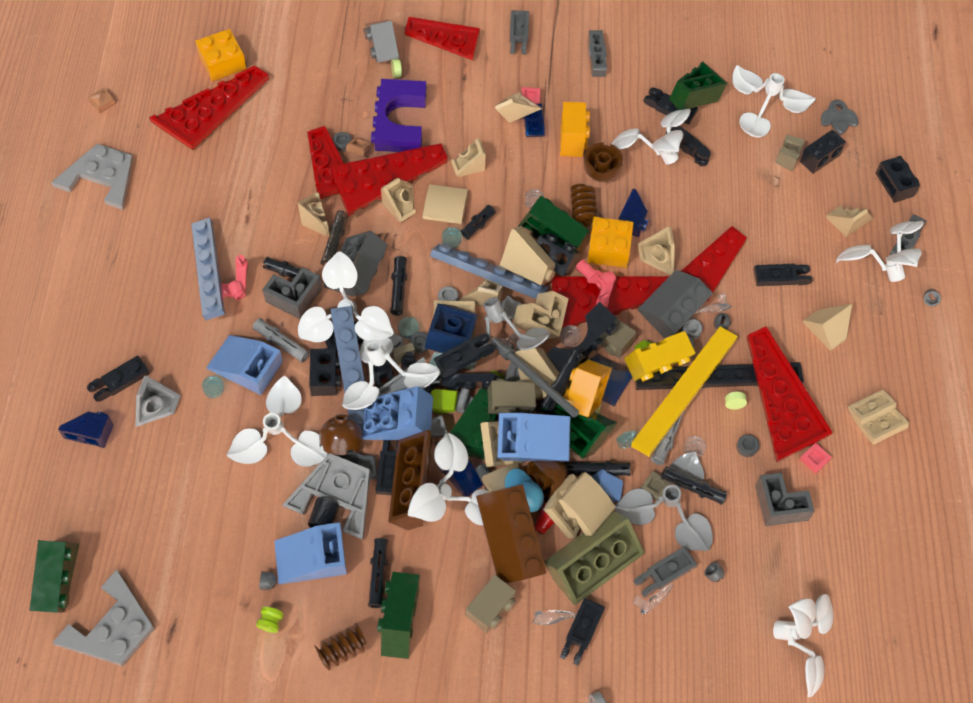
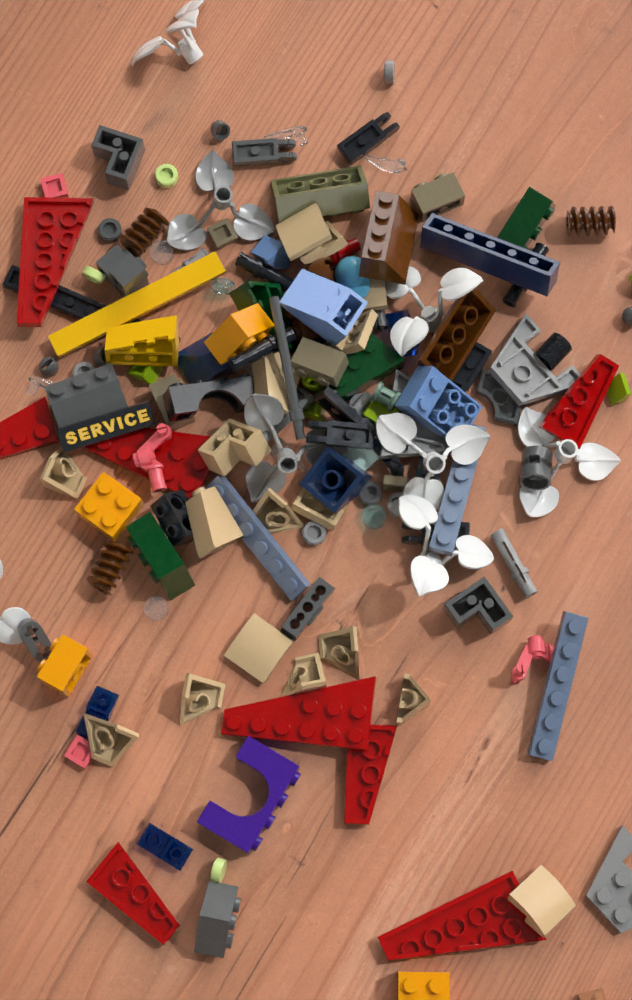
camera: 150 degrees left, 15 degrees up
(161, 134) = (542, 901): none -> tan slope
(213, 386) = (605, 545): clear light blue tile -> none
(247, 362) = (563, 551): medium blue slope -> none
(252, 512) = (618, 390): none -> lime slope
(279, 480) = (579, 405): none -> red wing
(282, 268) = (473, 651): black pin -> none
(289, 405) = (536, 468): none -> dark grey wheel
(311, 554) = (581, 317): medium blue slope -> none
(322, 372) = (490, 504): black brick -> none
(336, 230) = (401, 663): clear smoke pin -> none
(340, 435) = (502, 415): reddish brown cylinder -> none
(341, 140) = (332, 796): dark grey tile -> none
(359, 146) = (317, 776): nougat tile -> none
(365, 253) = (394, 616): dark grey slope -> none
(385, 230) = (341, 649): none -> tan slope
(399, 277) = (356, 577): black pin -> none
(416, 561) = (489, 254): none -> dark blue brick
(424, 243) = (309, 617): none -> dark grey piece
(435, 69) = (164, 846): none -> clear blue slope
(443, 405) = (378, 396): none -> sand green bush
(452, 237) = (273, 603): clear light blue tile -> none
(468, 231) = (235, 606): black pin -> none
(519, 30) = (38, 858): dark grey hinge -> none
(570, 335) = (211, 423): clear tile -> none
(602, 162) = (58, 604): reddish brown cylinder -> none
(606, 136) = (30, 642): none -> dark grey beam
(635, 212) = (62, 530): clear blue slope -> none
(648, 289) = (105, 426): none -> black tile
(703, 489) = (182, 206): black pin -> none
(713, 410) = (123, 270): none -> dark grey brick
(718, 452) = (143, 230): none -> reddish brown piece
(733, 513) = (166, 176): none -> yellowish green tile

